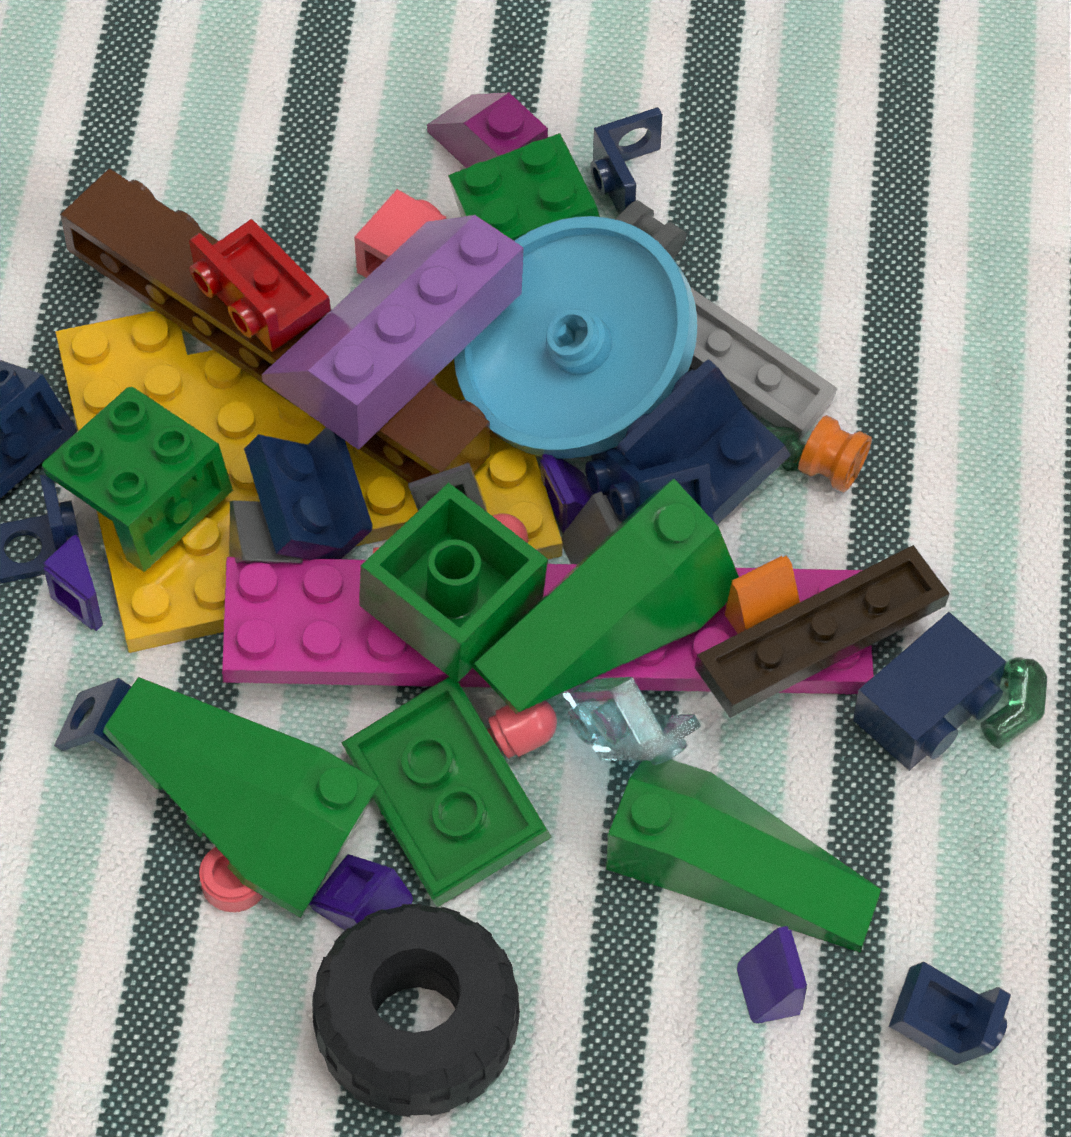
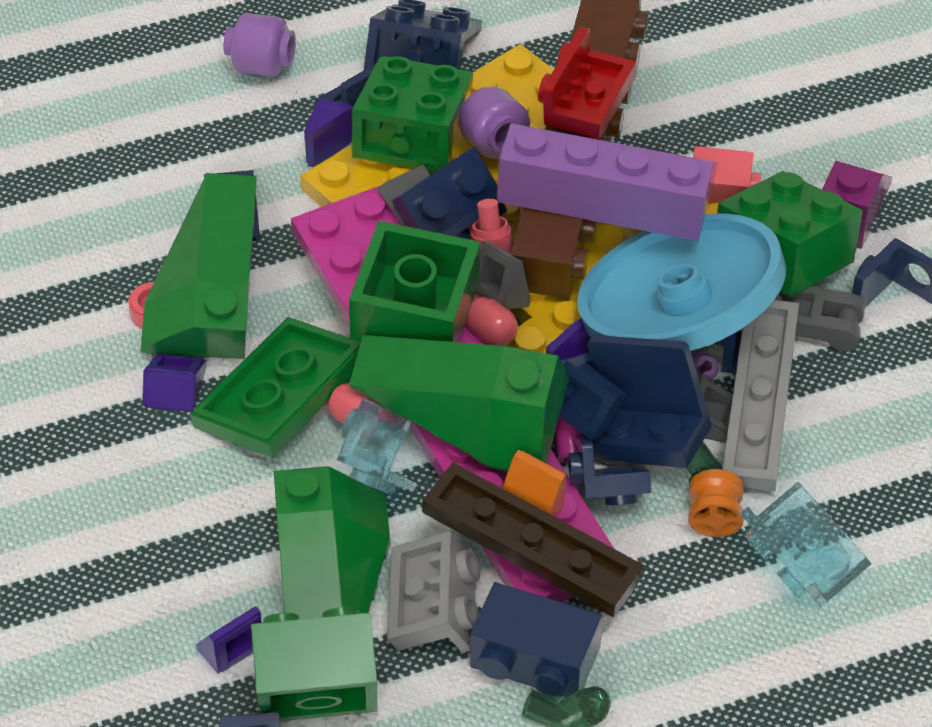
camera: 65 degrees right, 10 degrees down
(208, 399) = (487, 118): none -> medium lavender head
(384, 482) = (492, 226): none -> coral cylinder
(421, 1069) = (93, 465): black tyre -> none
(760, 527) = (616, 484): none -> dark blue bracket
(816, 762) = (432, 592): none -> light grey bracket
(895, 899) = (315, 664): none -> brick
(926, 402) = (808, 544): none -> clear light blue bracket

